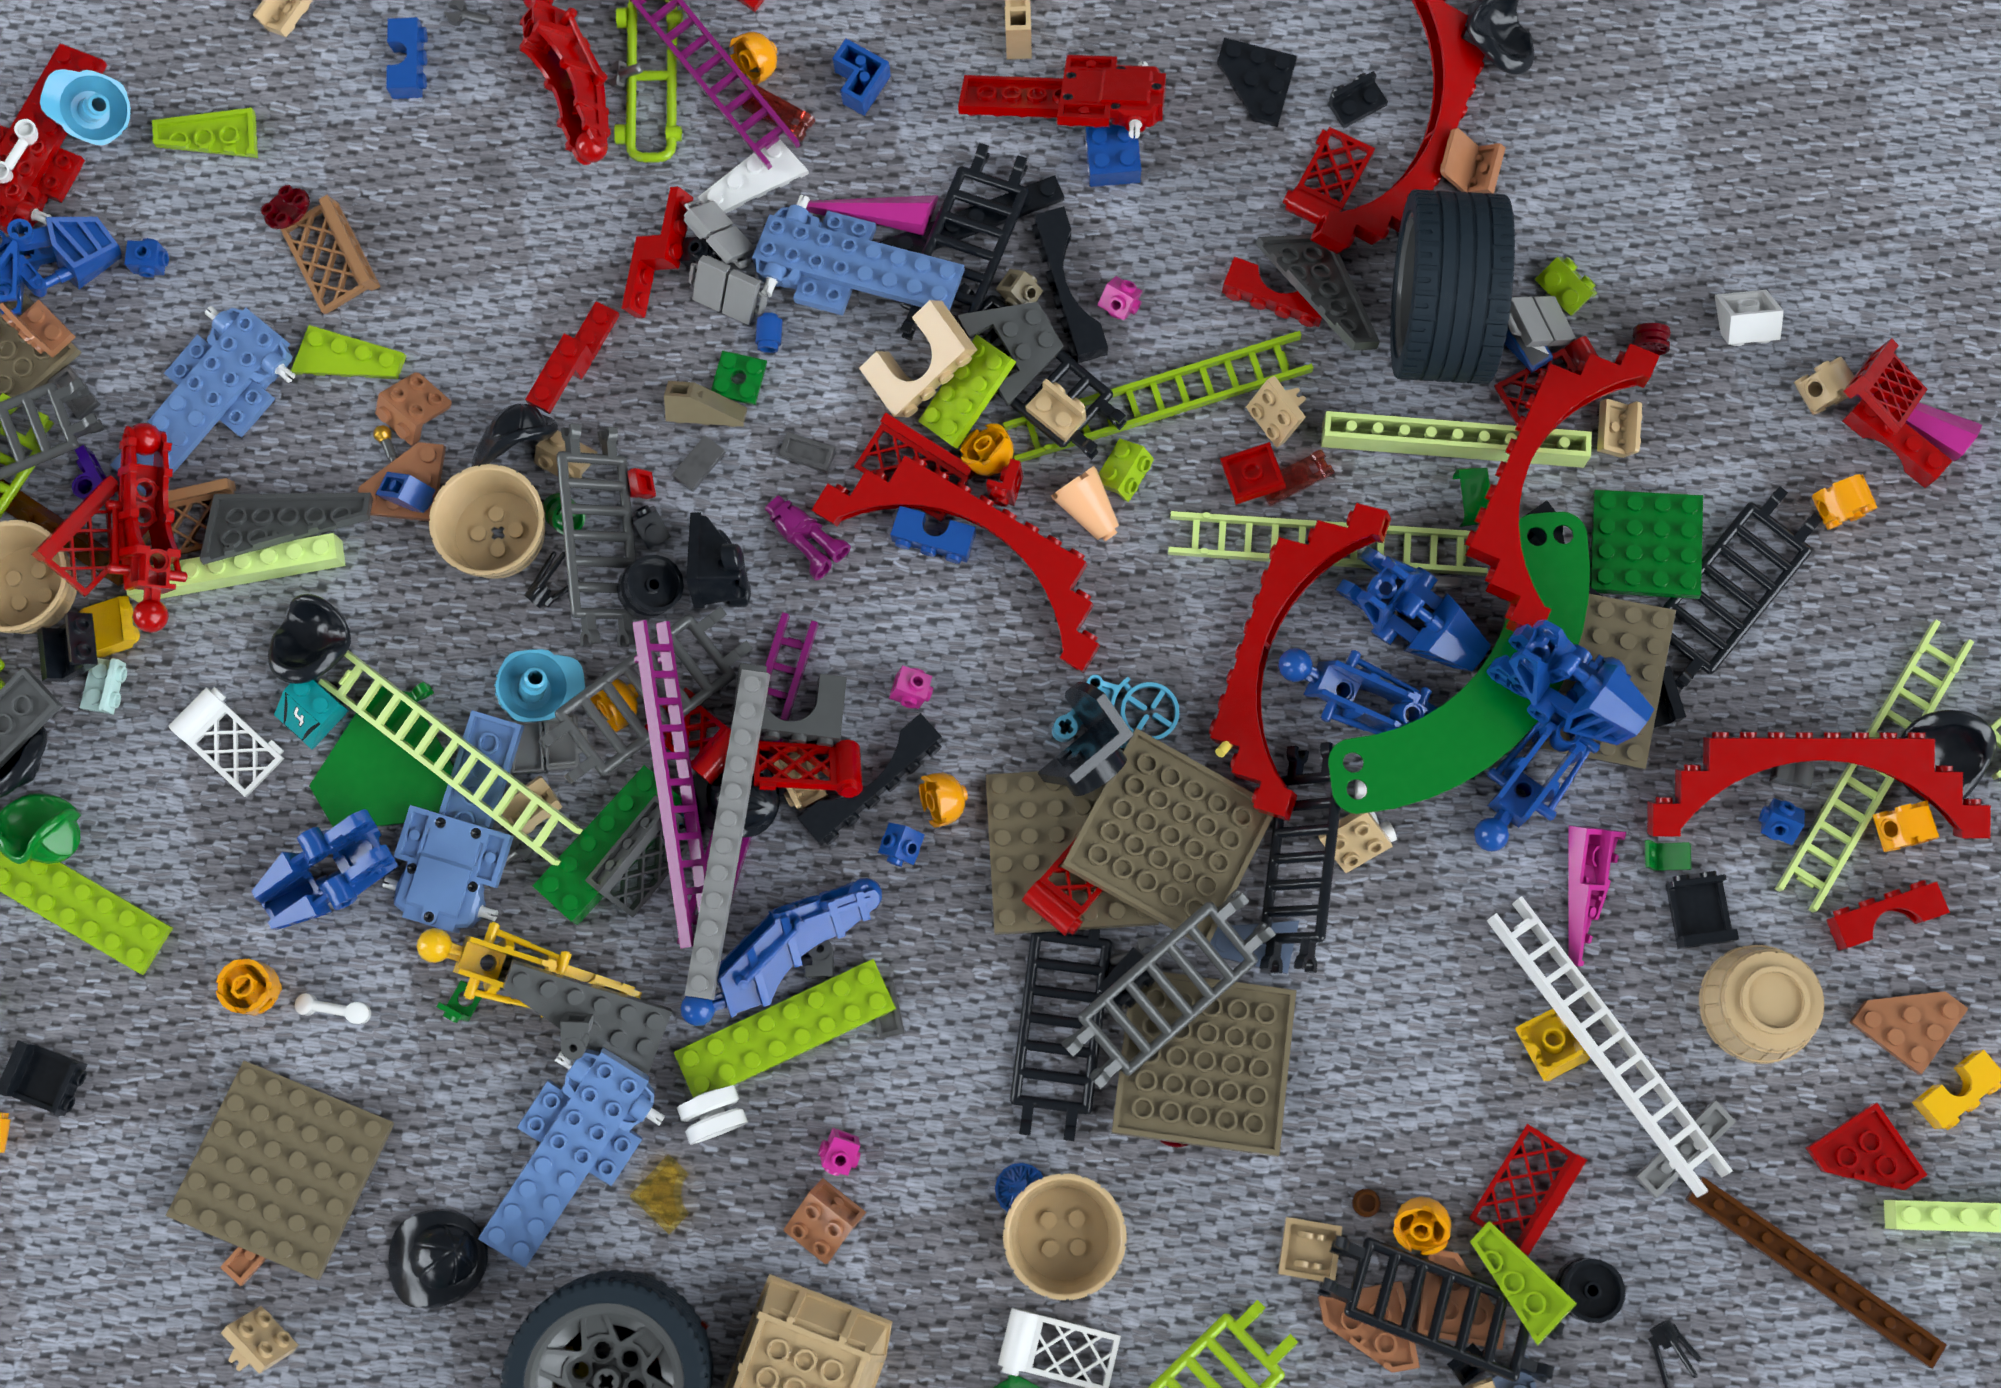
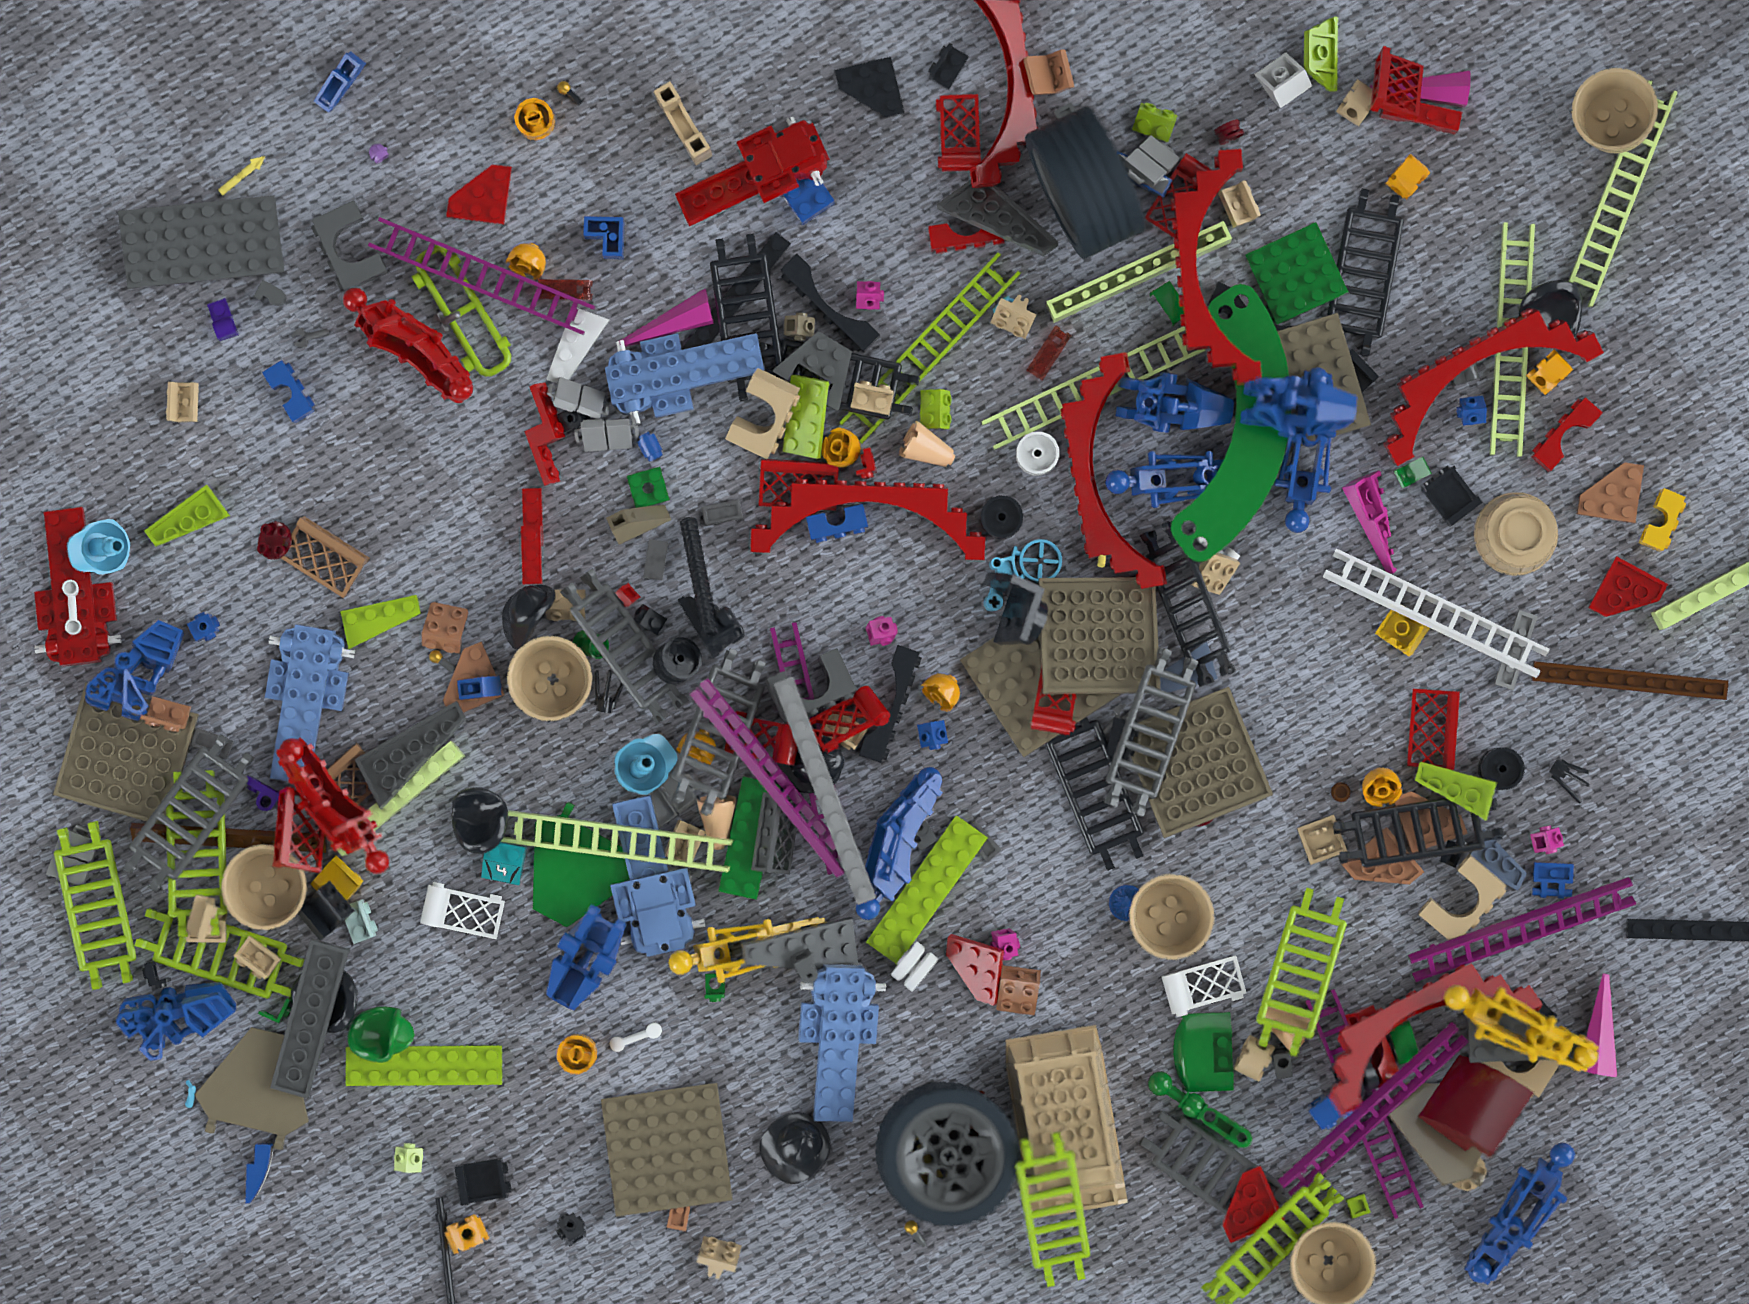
camera: 30 degrees left, 10 degrees up
(106, 1199) = (573, 1234): none -> black brick
(586, 800) = (720, 821): none -> light nougat cone
(662, 1194) = (909, 1031): clear yellow tile -> none
(730, 503) = (699, 577): none -> black piece
(791, 1161) = (978, 966): none -> plate
(798, 527) = (745, 568): magenta piece -> none
(1128, 648) = (1013, 517): none -> black wheel
(1215, 598) = (1037, 465): none -> white wheel
(1253, 473) = (1020, 366): red tile -> none
(1811, 309) = (1322, 53): none -> lime wing

